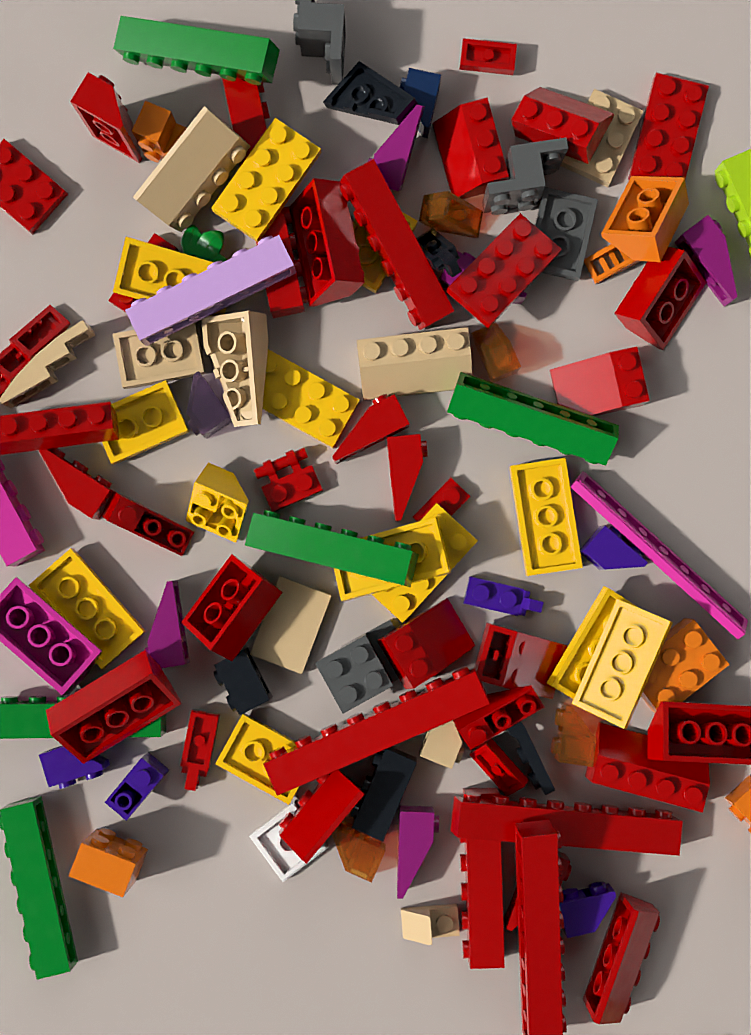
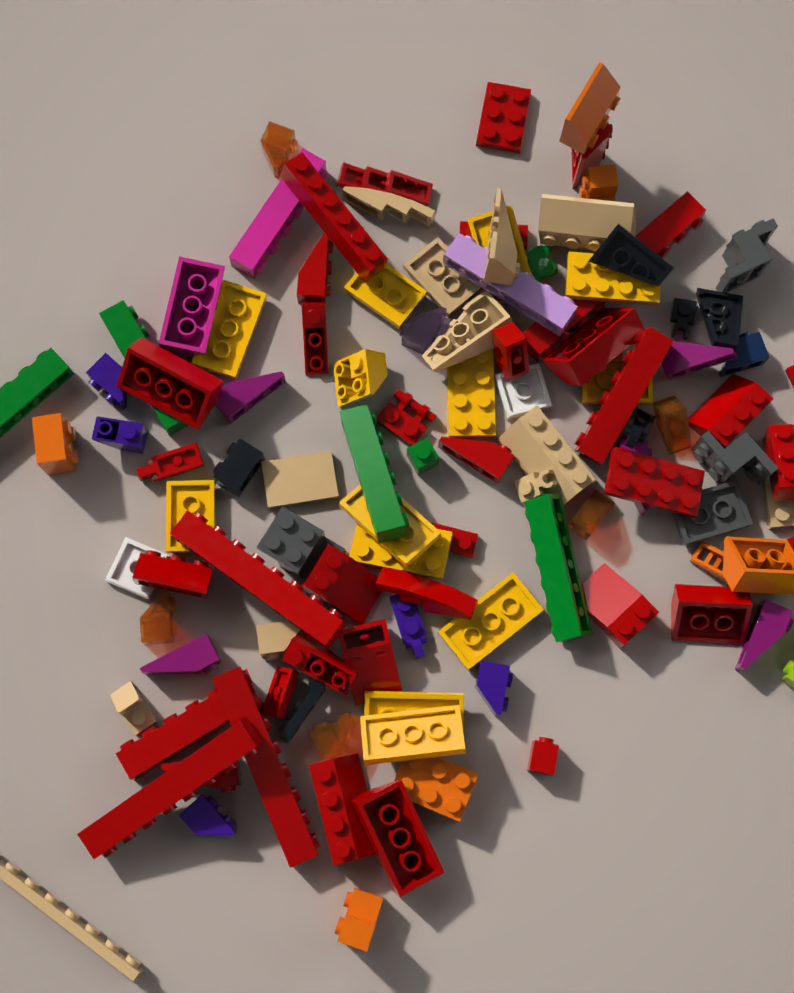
camera: 55 degrees right, 10 degrees down
(75, 85) = (591, 110): none -> orange slope
(175, 278) = (501, 250): none -> tan wedge
(197, 50) = (675, 180): green brick -> none
(231, 608) = (288, 427): red brick -> none
(258, 146) = (630, 256): none -> black wing
(283, 332) = (510, 351): none -> red brick
(328, 344) = (523, 392): none -> white tile
(340, 487) = (422, 456): none -> green brick
(342, 133) = (682, 314): none -> black plate
(383, 792) = (213, 615): black brick -> none
(405, 462) = (465, 495): red slope -> none
(434, 393) = (533, 484): none -> tan plate
(485, 563) = (433, 595): none -> red slope
(620, 959) = (184, 870): red slope -> none
(660, 555) = (513, 725): dark pink tile -> none
(707, 544) = (543, 756): none -> red brick

